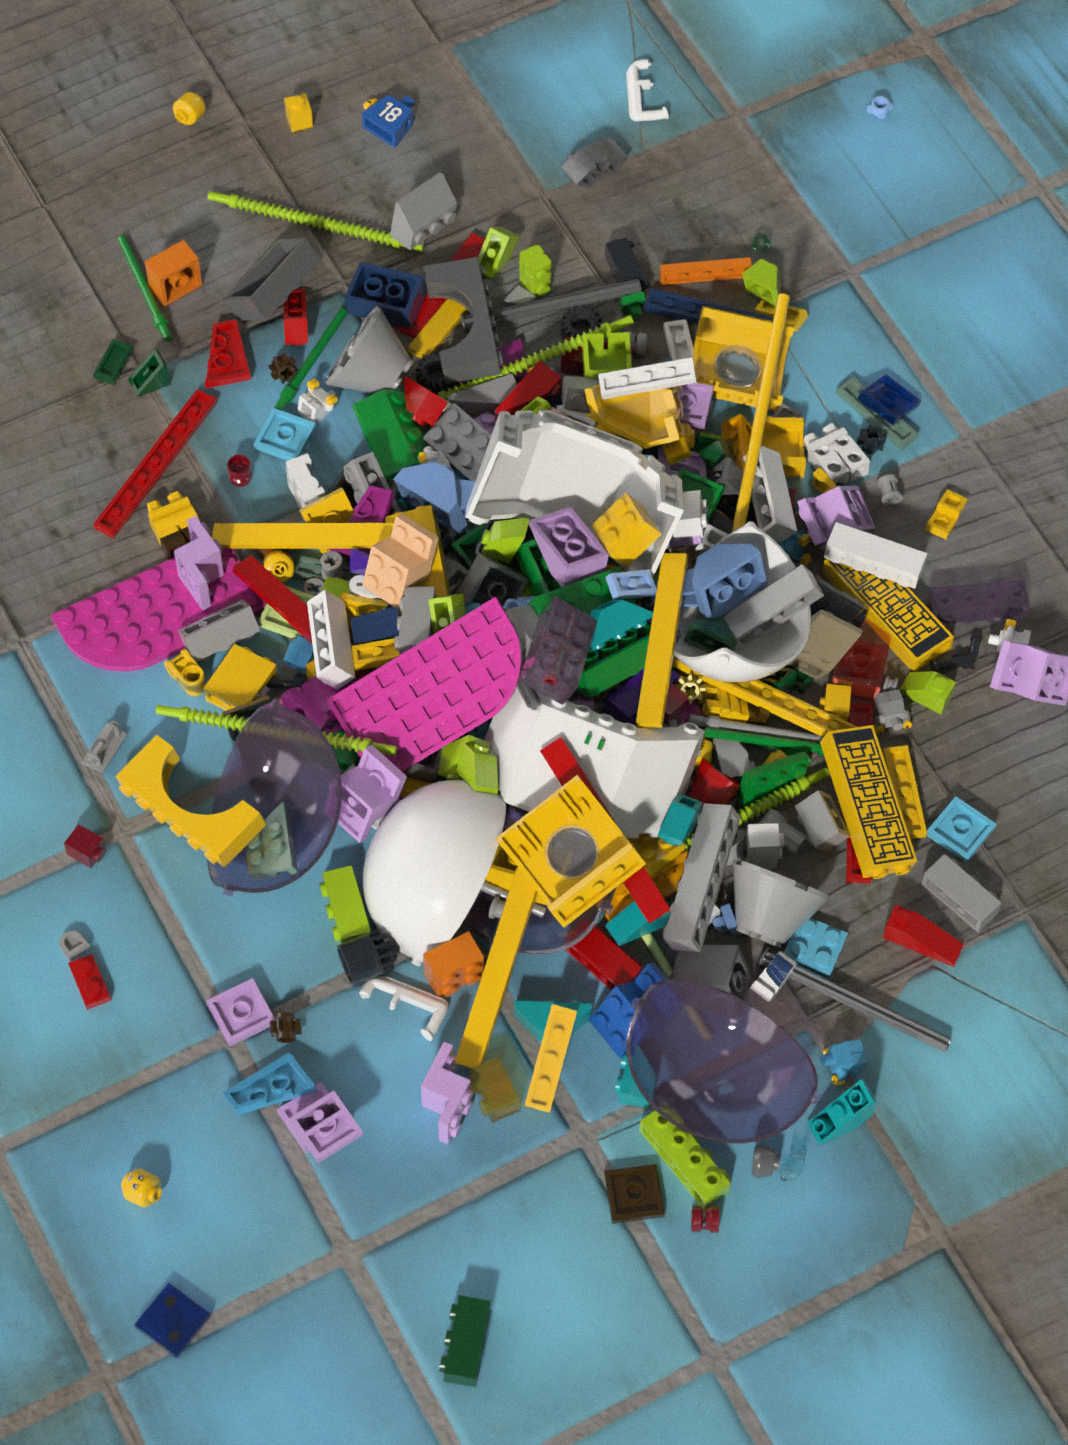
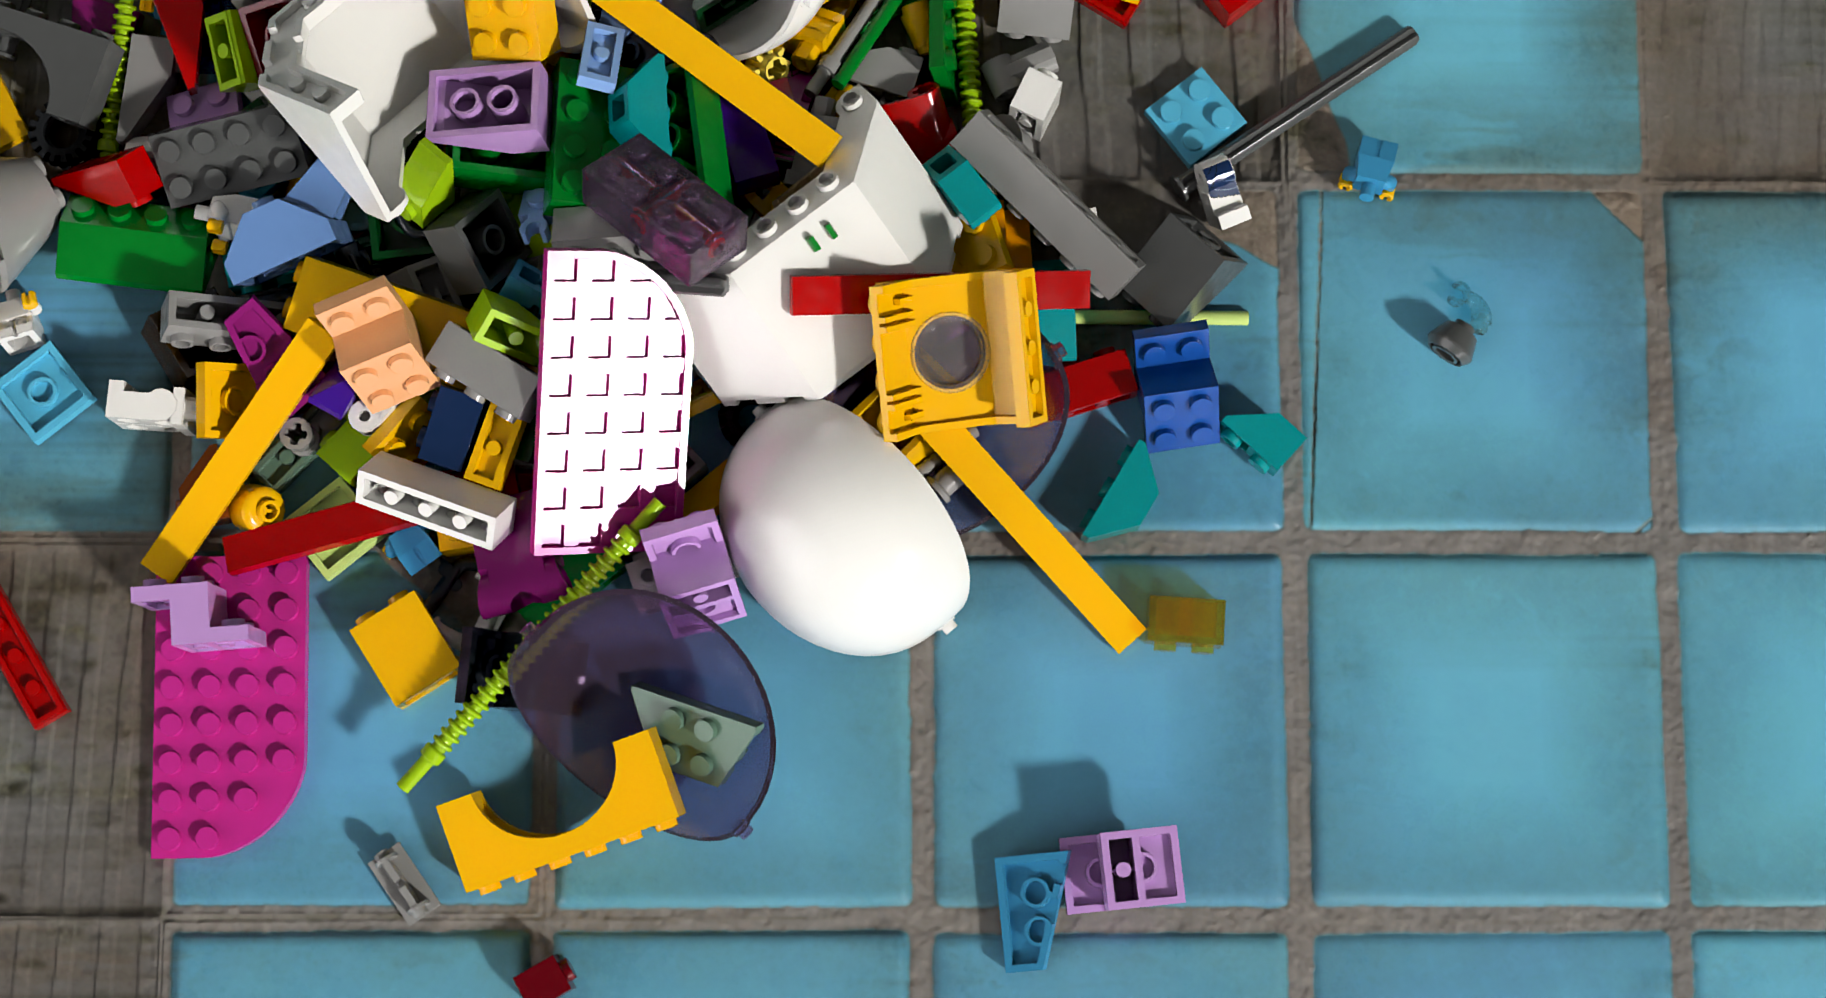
camera: 60 degrees left, 20 degrees up
(171, 522) = (94, 619): yellow hips -> none
(185, 669) = (343, 715): yellow piece -> none
(219, 631) = (313, 640): light grey brick -> none
(239, 470) = (58, 481): dark red wheel -> none
(240, 1012) = (901, 892): lavender plate -> none
(285, 1027) = (957, 846): dark brown gear -> none
(313, 583) = (307, 470): light grey bush -> none
(344, 904) = (825, 680): lime brick -> none
(367, 956) = (917, 689): black gear -> none
(411, 995) = (993, 657): white piece -> none
(446, 1093) = (1167, 686): lavender bracket -> none
(451, 755) = (712, 419): lime slope -> none
(453, 965) = (993, 585): orange brick -> none
(465, 1341) = (1500, 834): dark green brick -> none
(479, 768) = (754, 407): lime slope -> none
(550, 1058) = (1186, 530): yellow plate -> none
(634, 1193) = (1408, 523): dark brown tile -> none
(686, 1159) = (1397, 434): lime brick -> none
(711, 1219) = (1491, 455): dark red wheel -> none
(717, 1063) = (1326, 324): clear purple windscreen -> none
(727, 921) = (1109, 202): medium blue tile -> none
(771, 904) = (1125, 134): light grey cone -> none
(844, 1113) = (1447, 211): teal slope -> none

